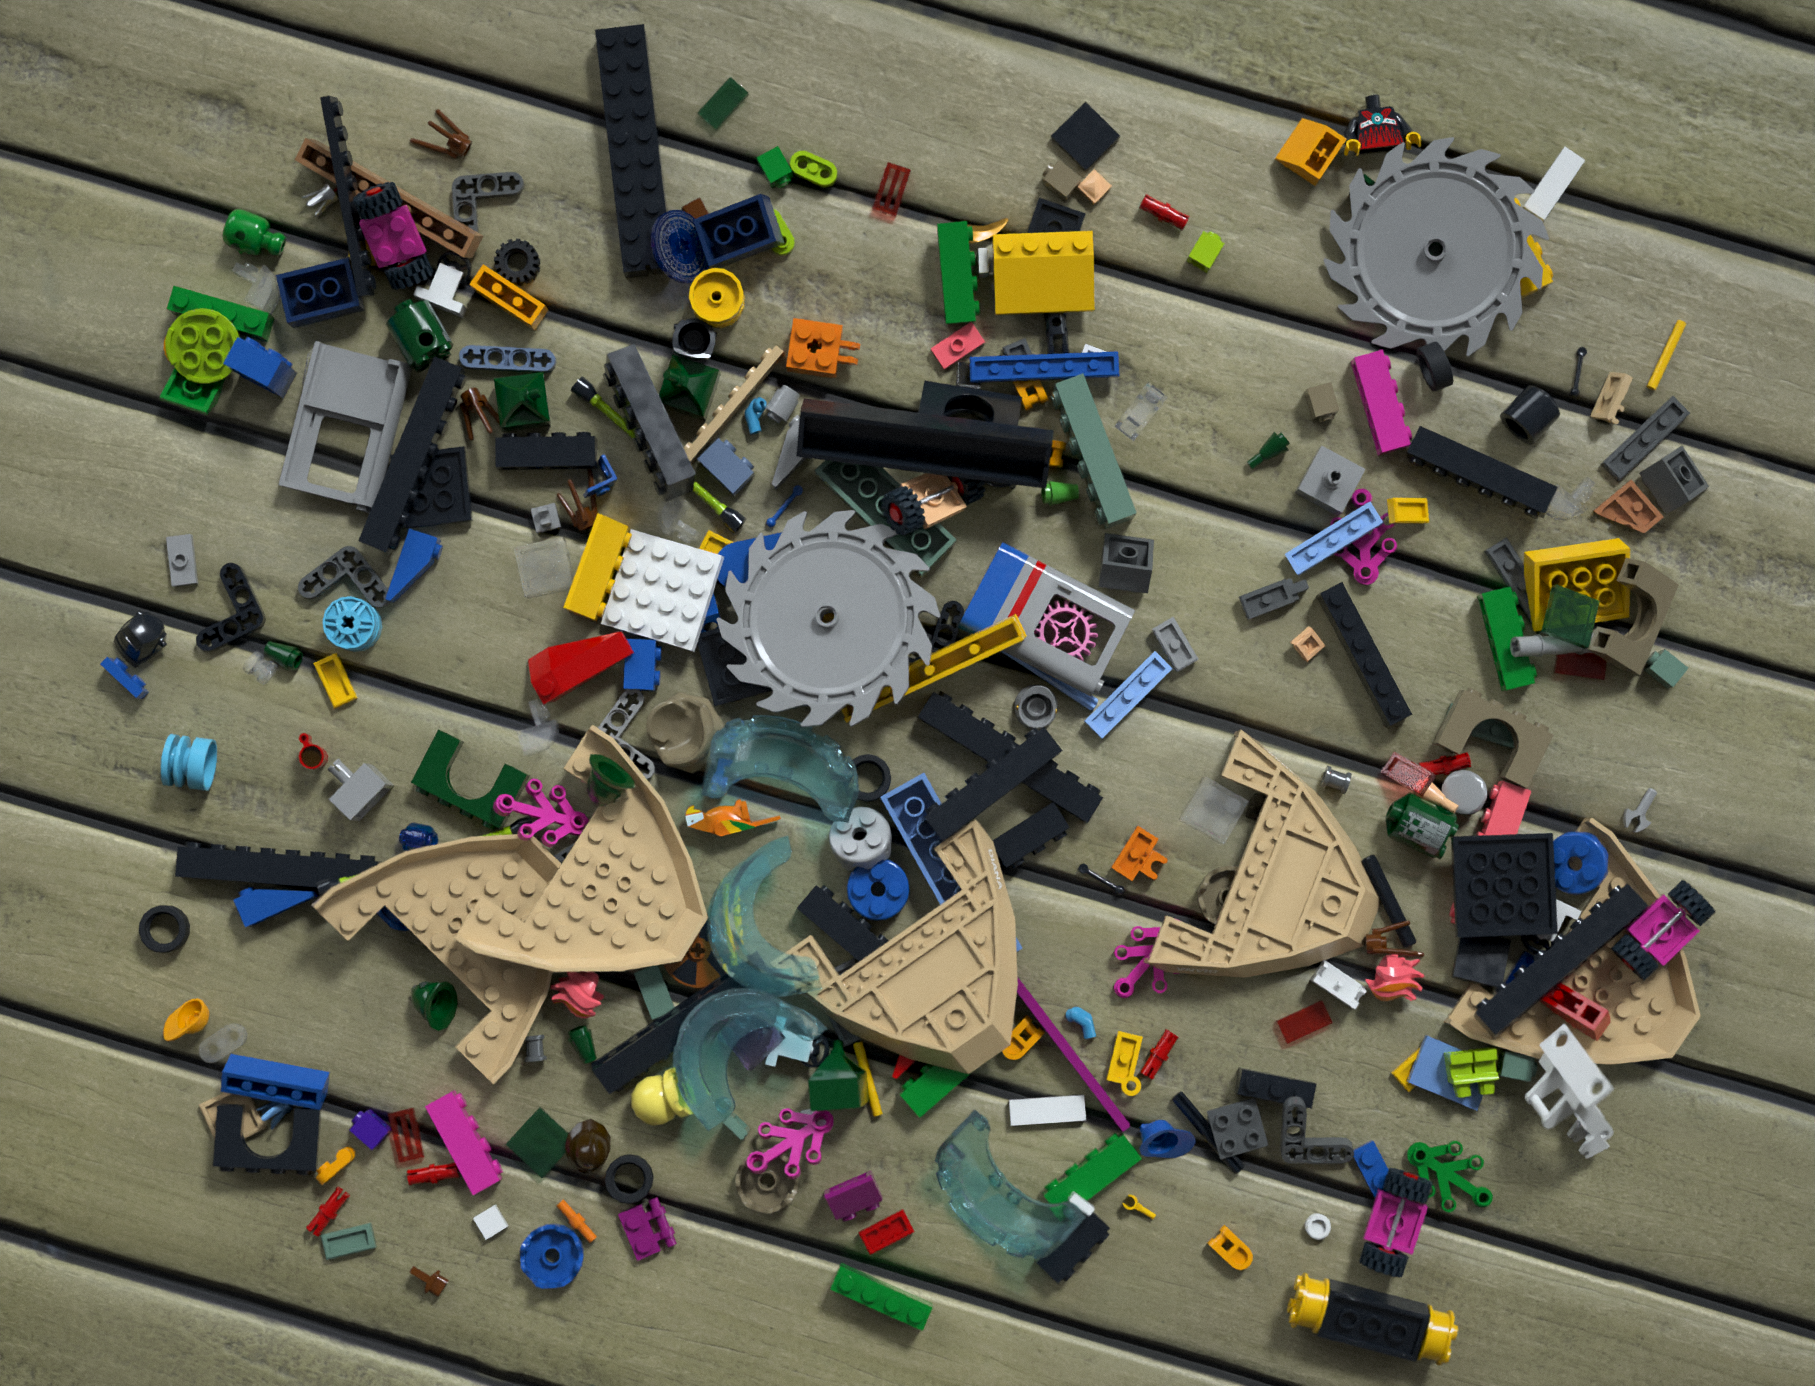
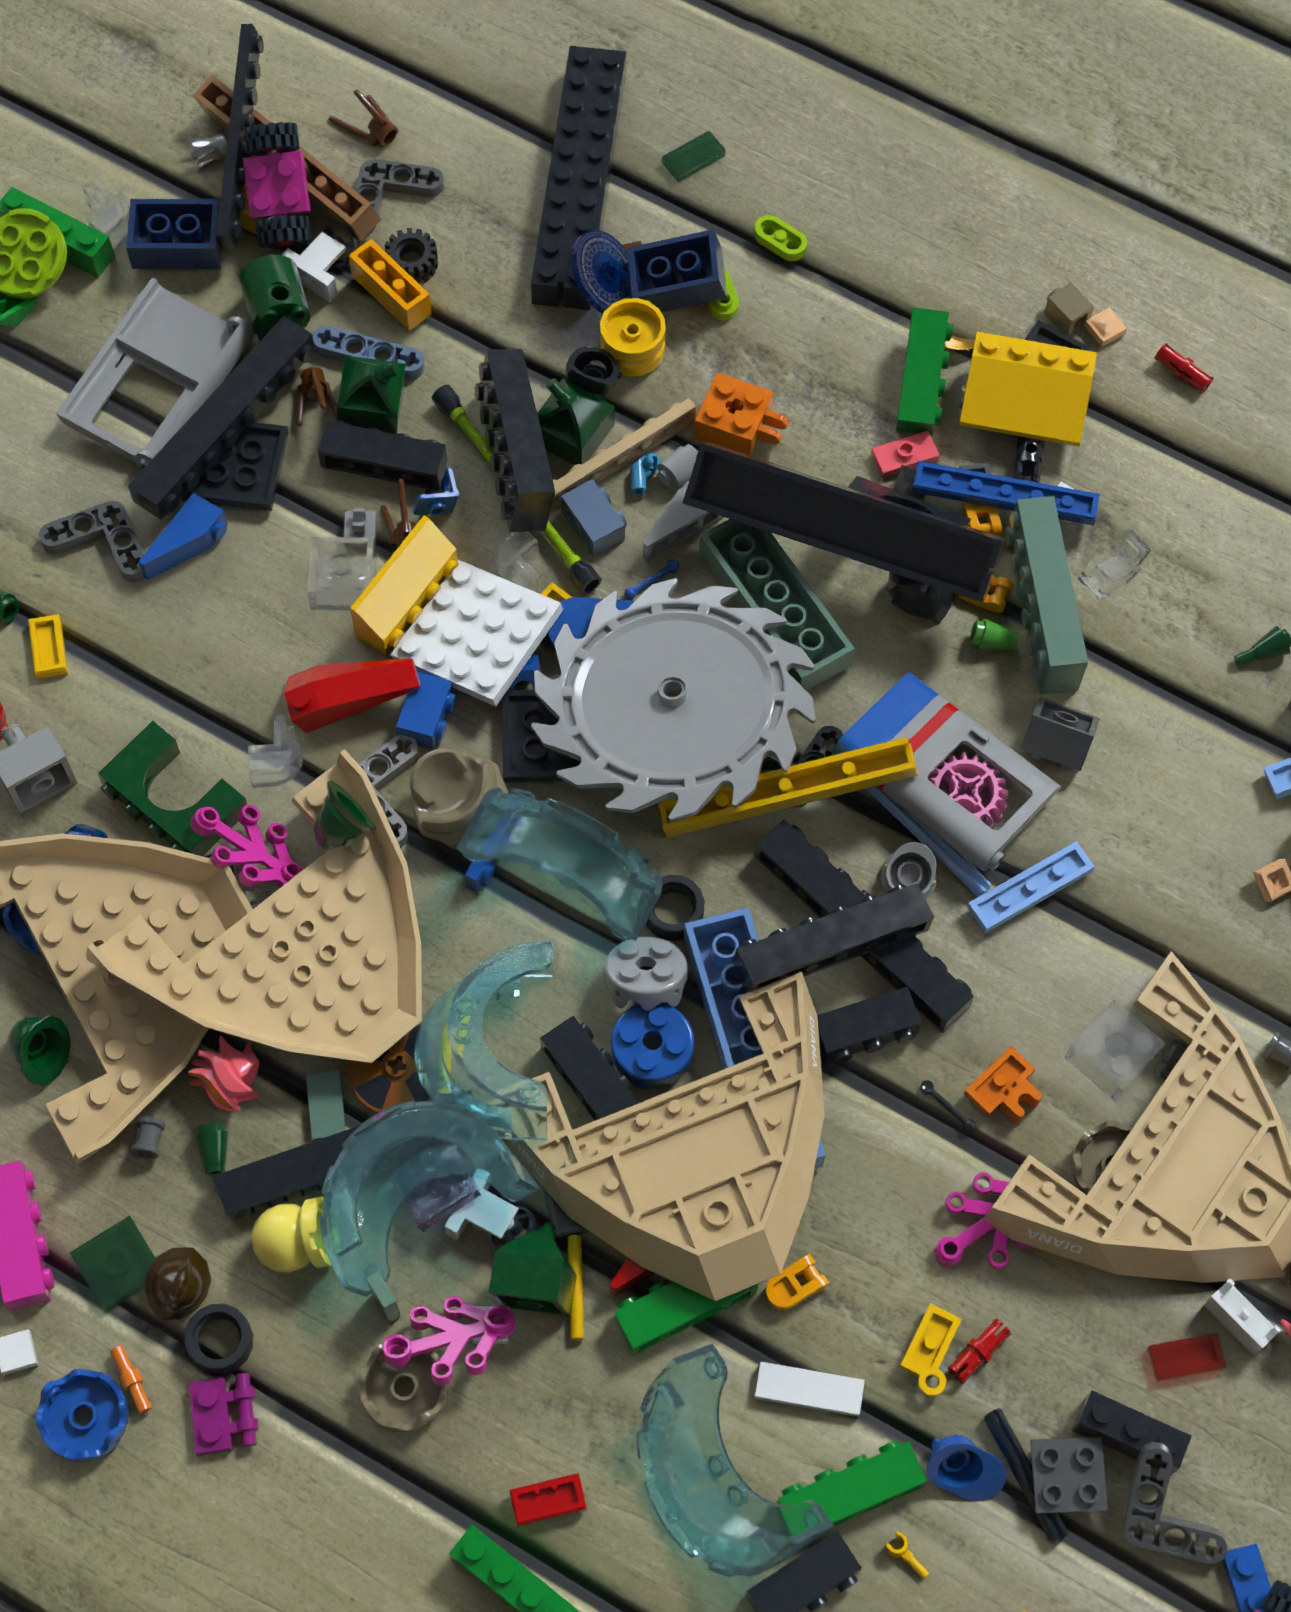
camera: 15 degrees right, 20 degrees down
(251, 234) = (118, 162): green piece -> none
(260, 366) = (79, 283): blue brick -> none
(366, 624) = (89, 581): medium azure wheel -> none
(724, 819) = (477, 913): orange animal -> none
(775, 168) = (736, 226): green brick -> none
(853, 1196) = (515, 1434): magenta slope -> none
(885, 209) = (854, 297): clear red tile -> none
(929, 501) = (836, 593): plate -> none
(983, 262) = (956, 372): white tile -> none
(1072, 1056) = (859, 1323): magenta tile -> none
(1081, 1203) = (839, 1523): white tile -> none
(1082, 1018) = (886, 1278): dark azure arm -> none
(1085, 136) = (1105, 275): black tile -> none
(1174, 644) = (1103, 841): light grey plate -> none
(1205, 251) = (1226, 418): lime brick -> none
(1271, 597) = (1238, 814): dark grey hinge -> none

